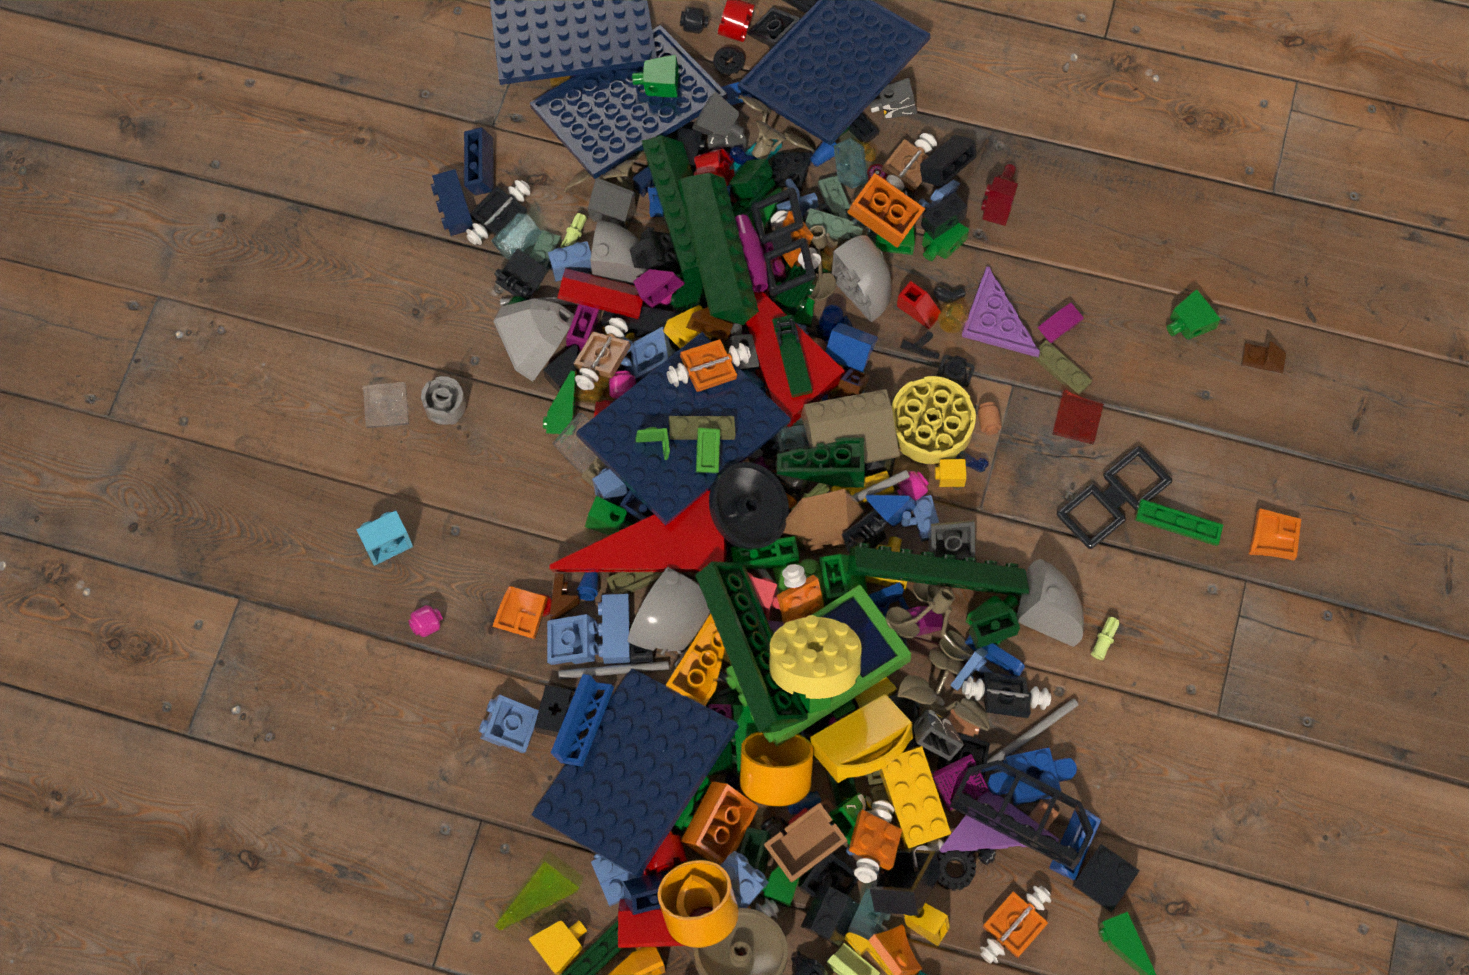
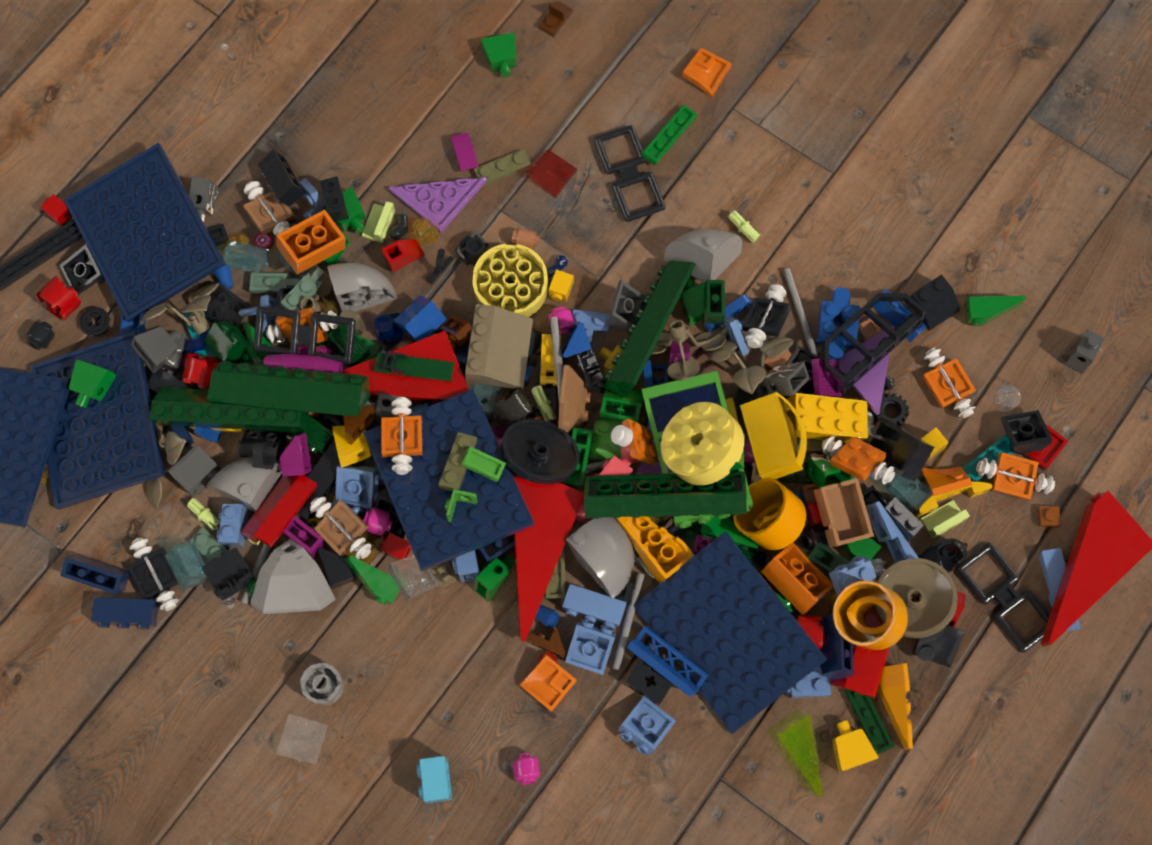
camera: 70 degrees left, 5 degrees up
(807, 903) = (887, 531): none -> medium blue slope
(830, 464) = (523, 373): dark green wedge -> none
(945, 272) = (379, 222): none -> yellowish green panel
(1000, 197) = (333, 149): dark red brick -> none

